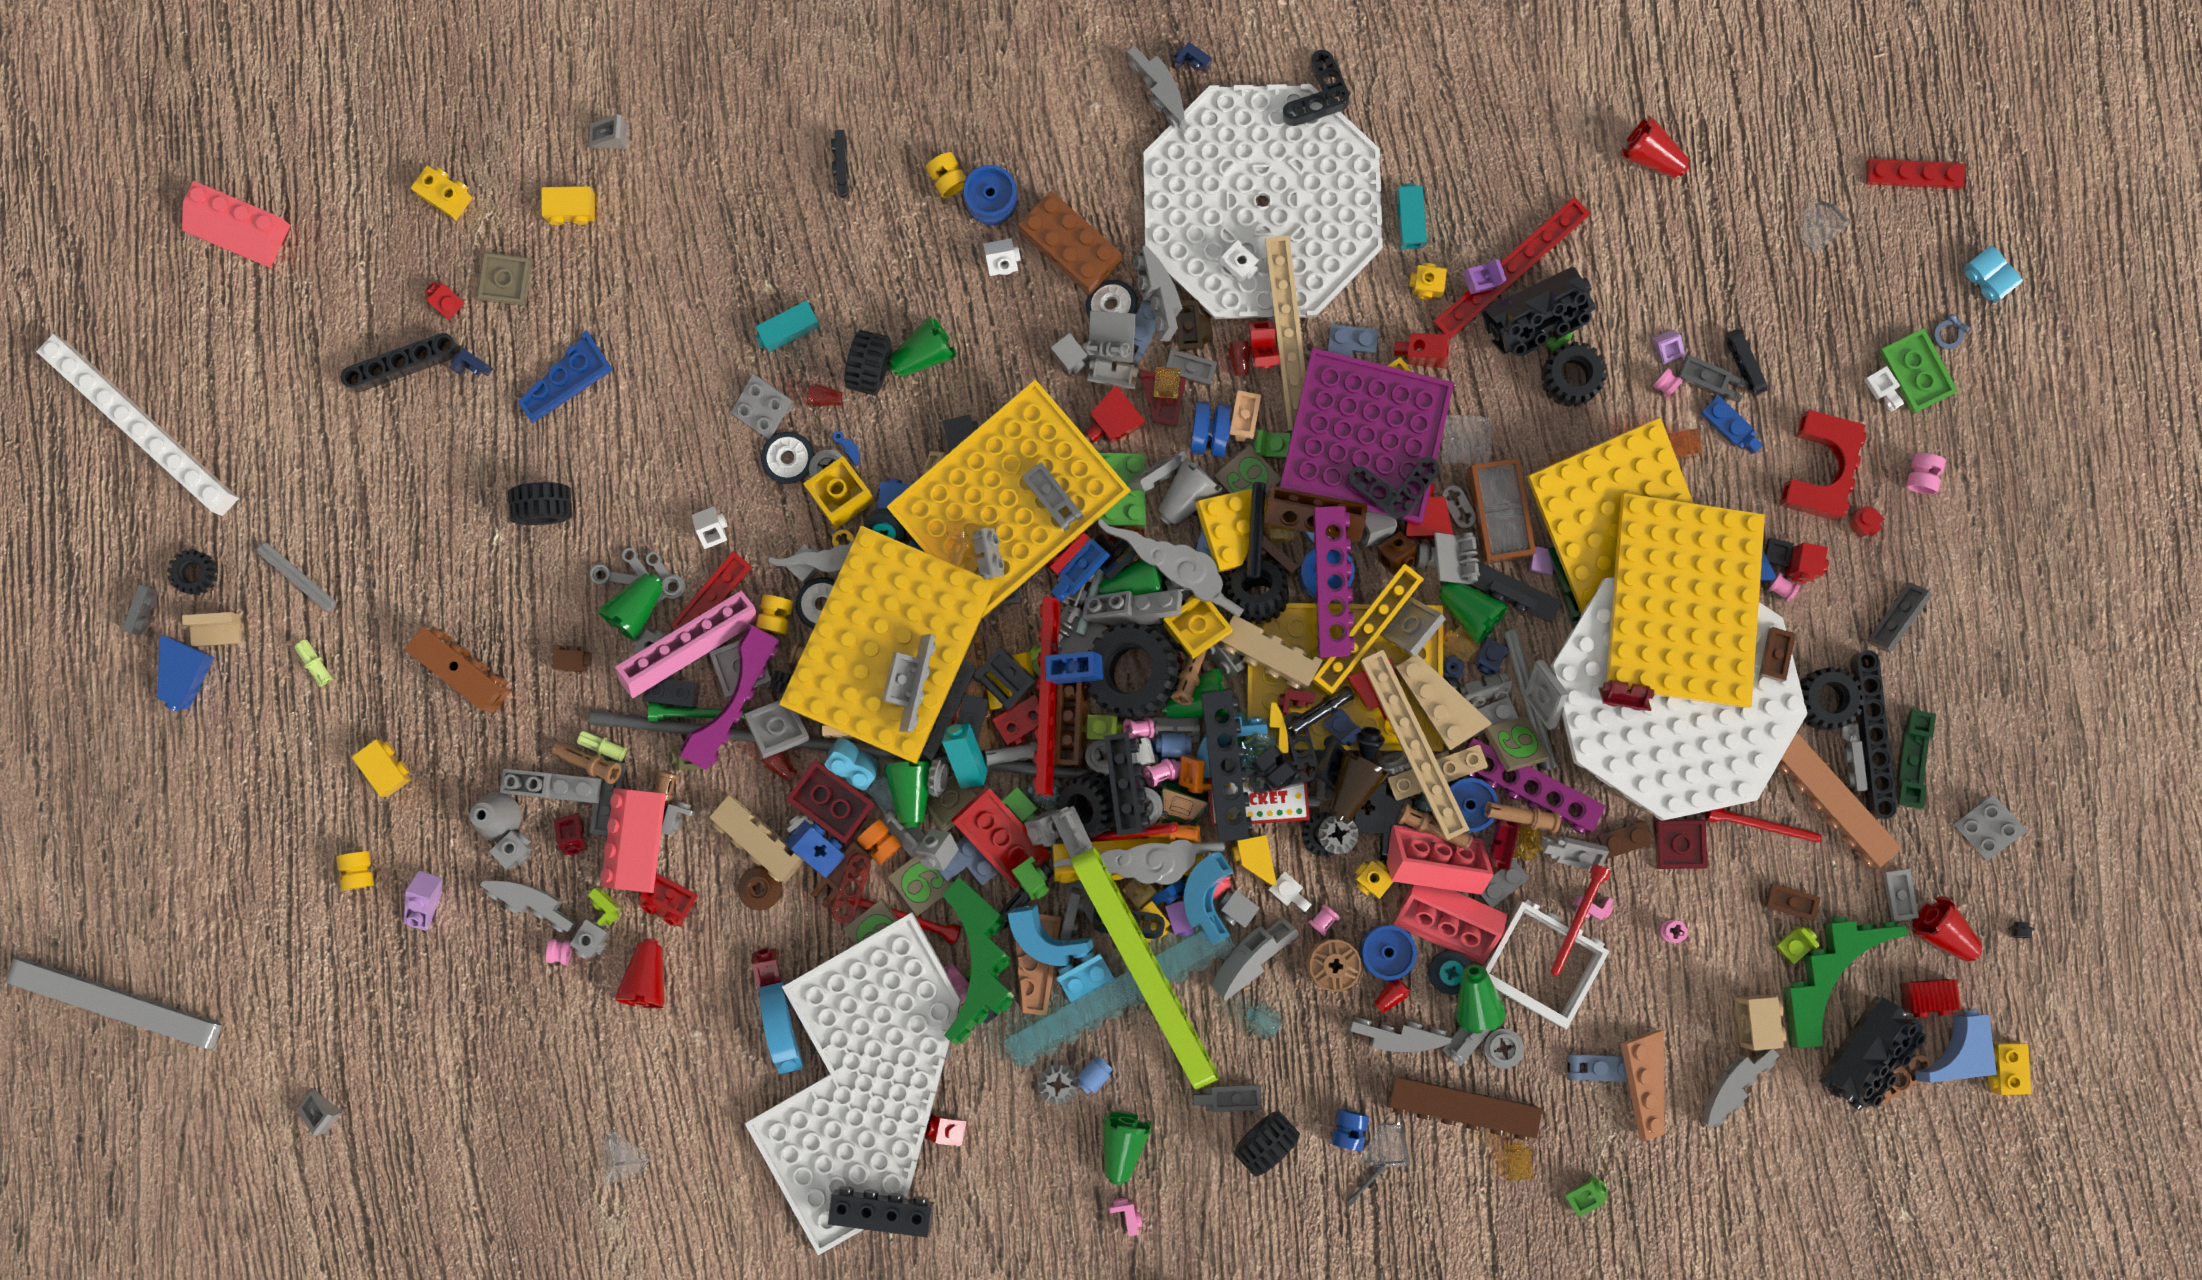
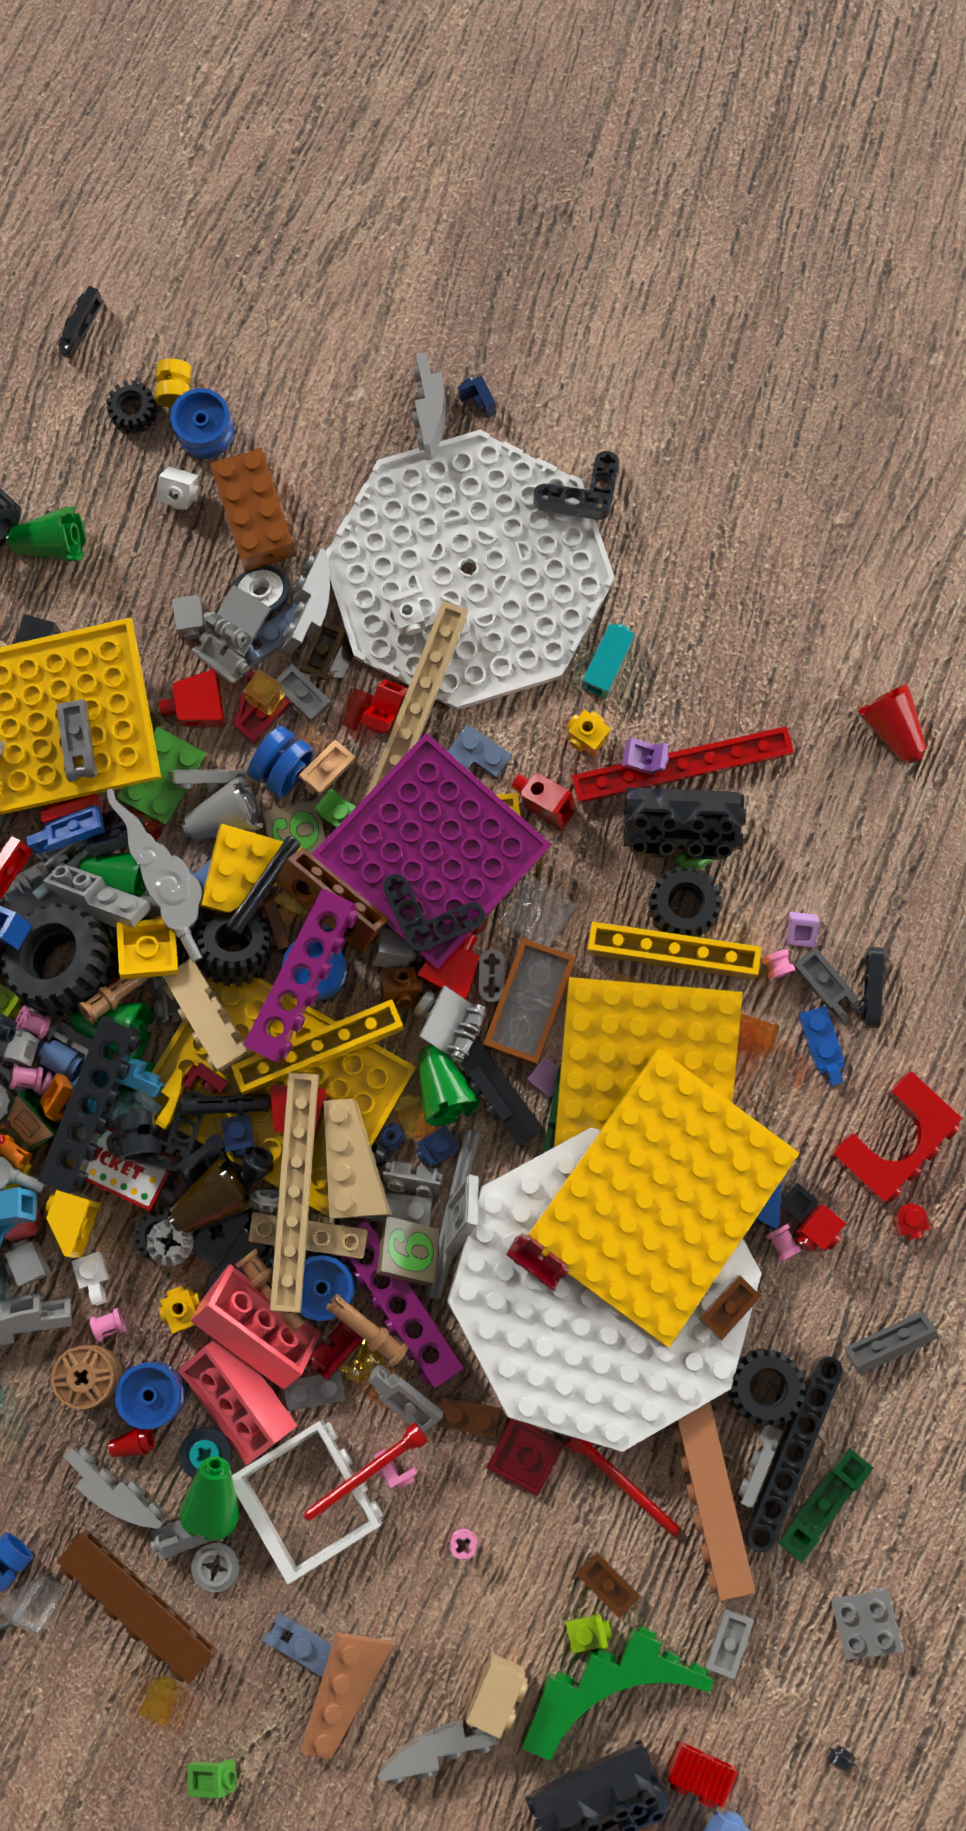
camera: 35 degrees right, 5 degrees down
(930, 223) = (124, 394): none -> black tyre
(1412, 626) = (366, 1069): light grey plate -> none
(1586, 414) = (674, 950): none -> yellow brick
(1947, 929) = (757, 1710): red cone -> none

